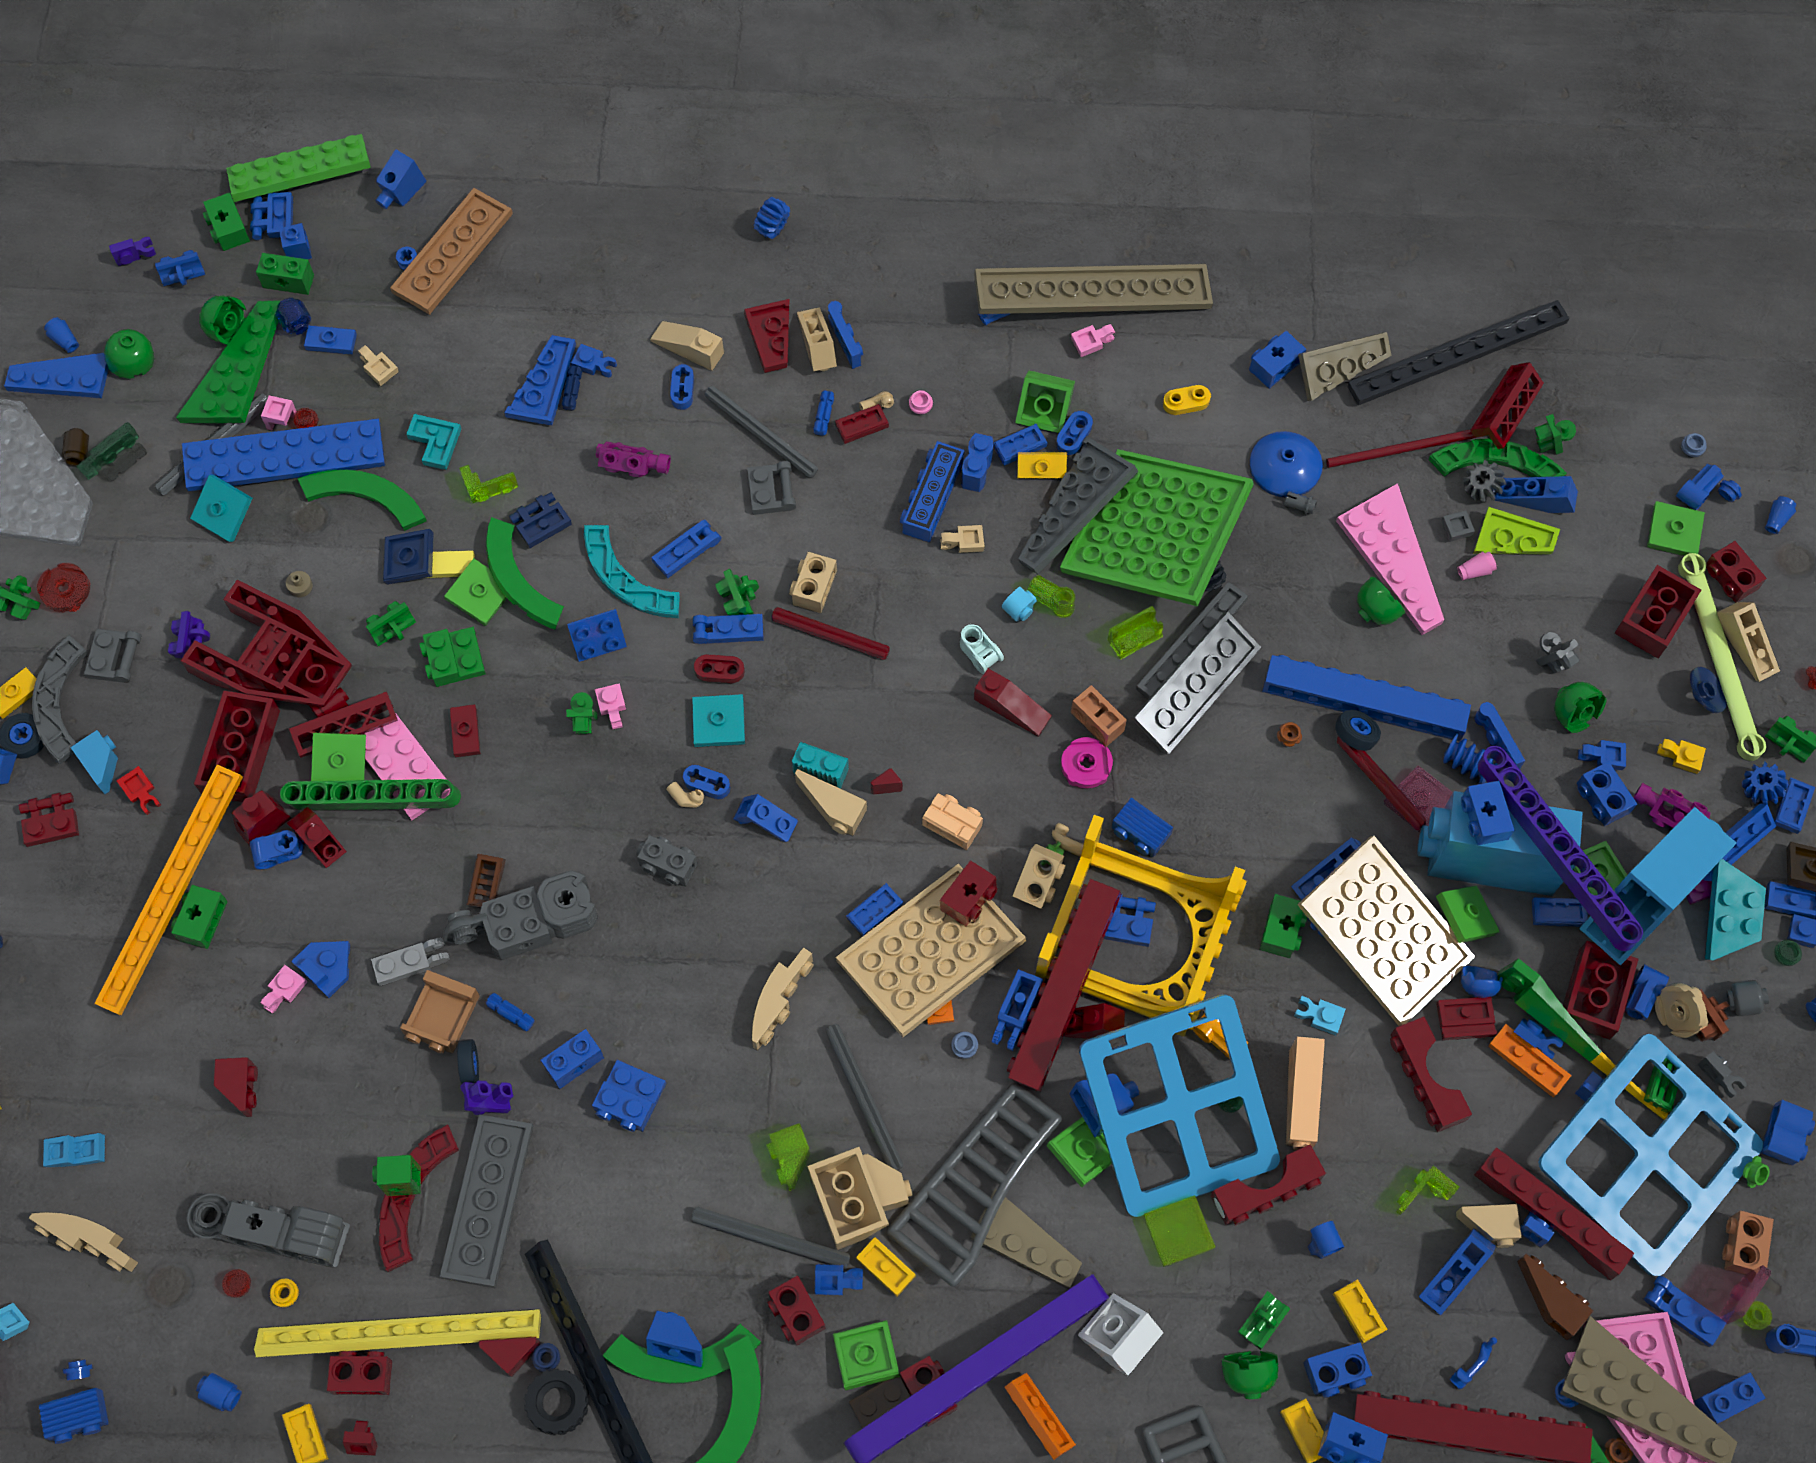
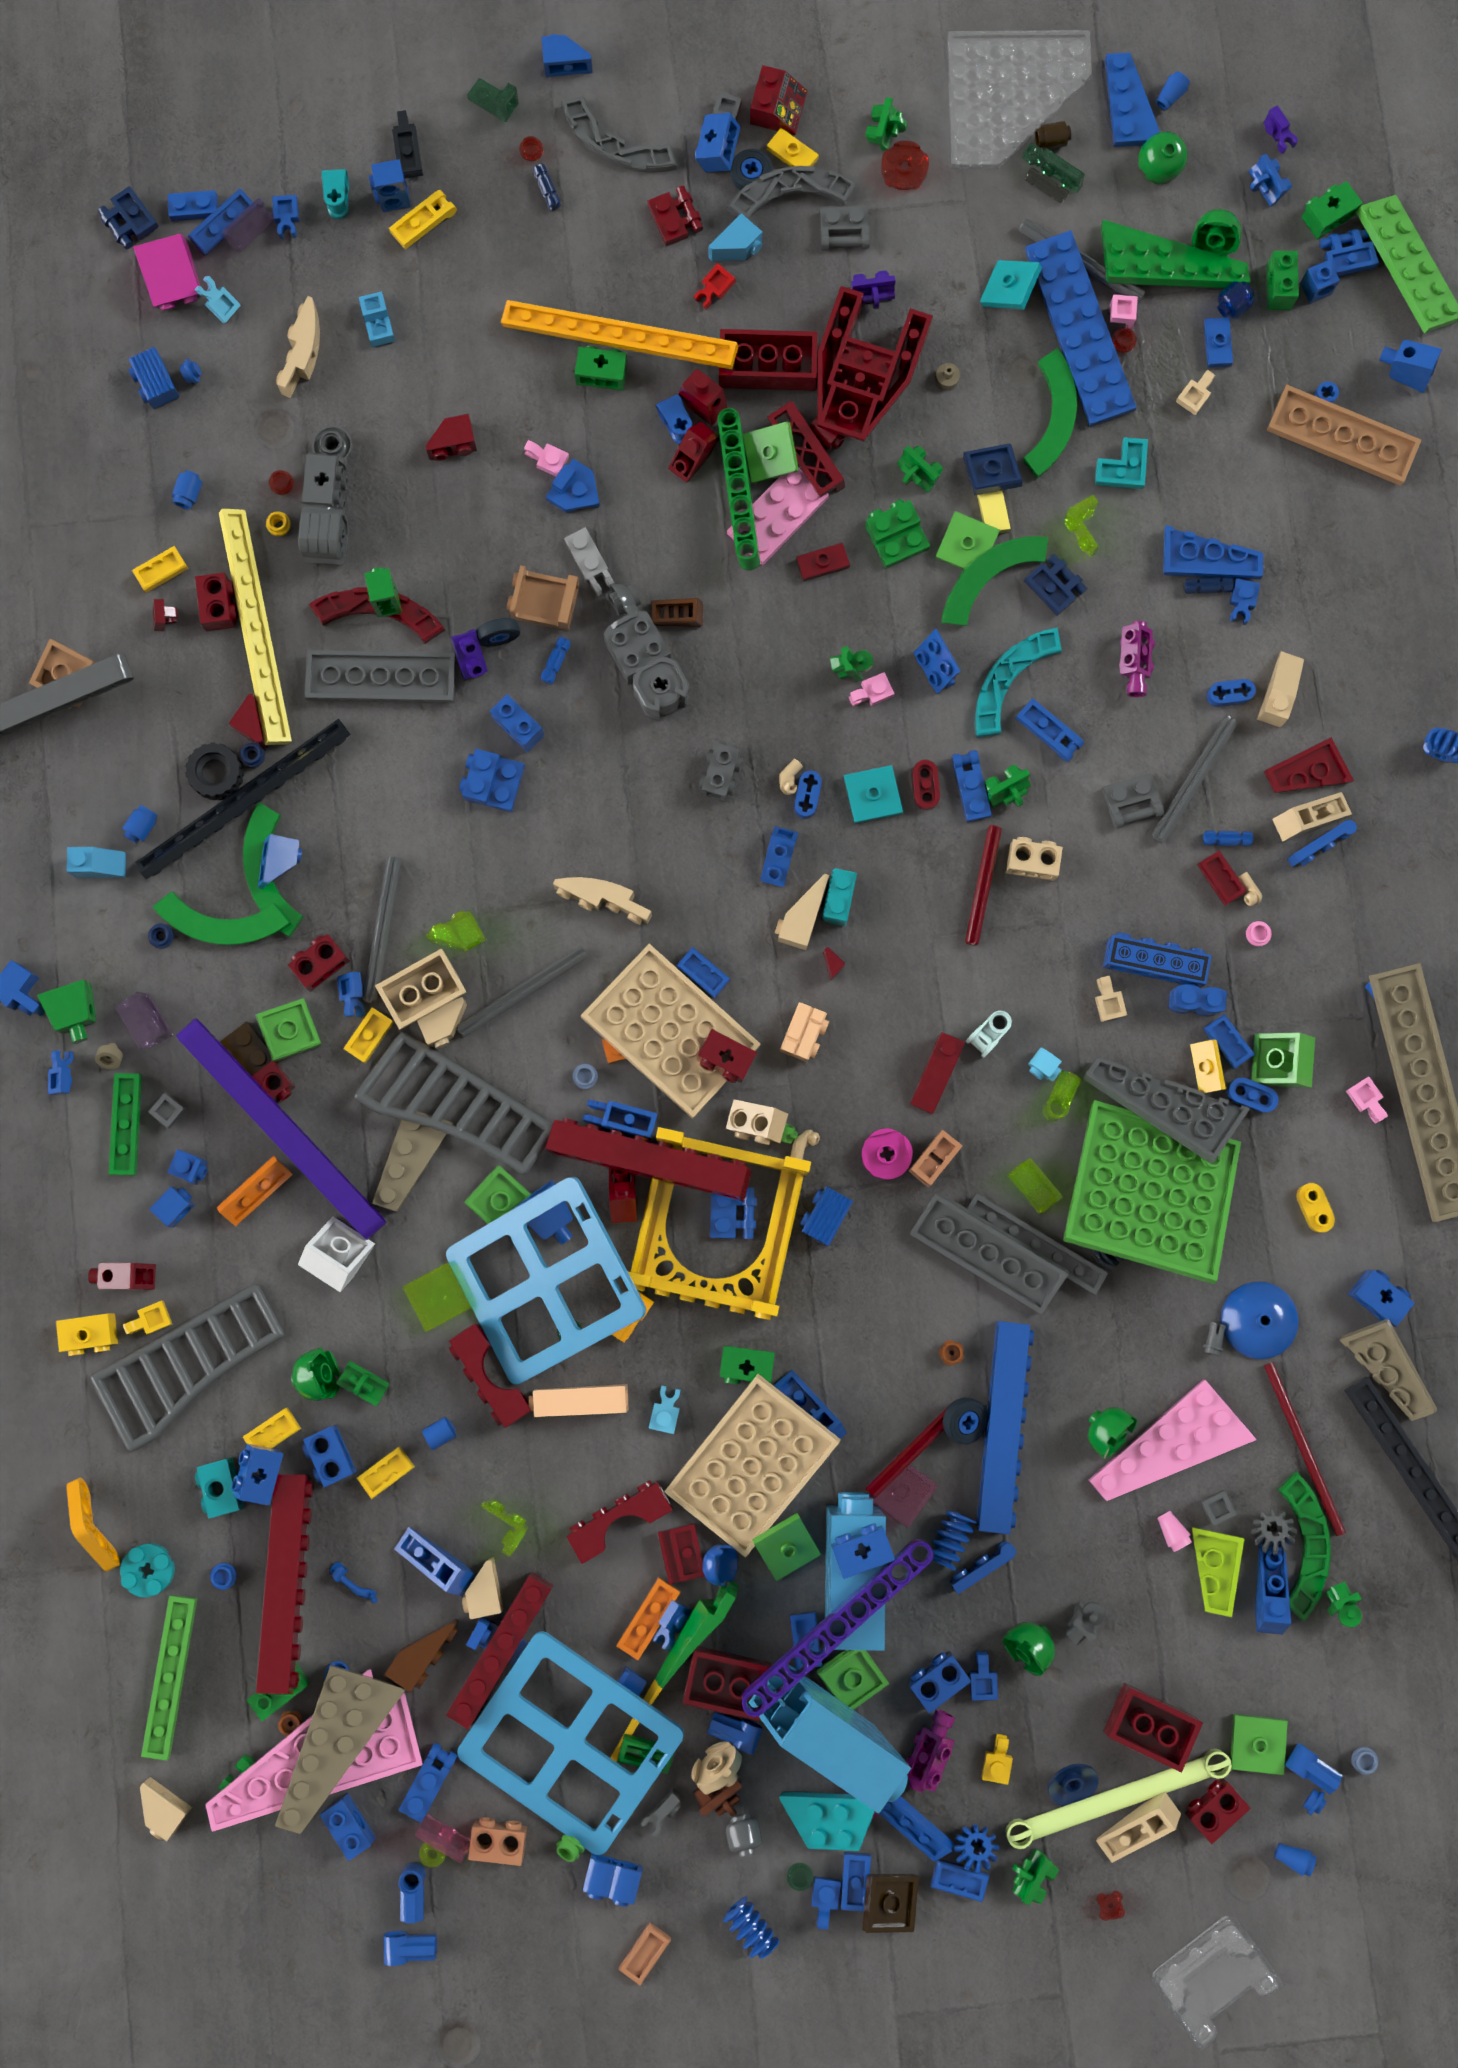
camera: 80 degrees right, 15 degrees up
(1506, 398) = (1378, 1548): dark red fence -> none

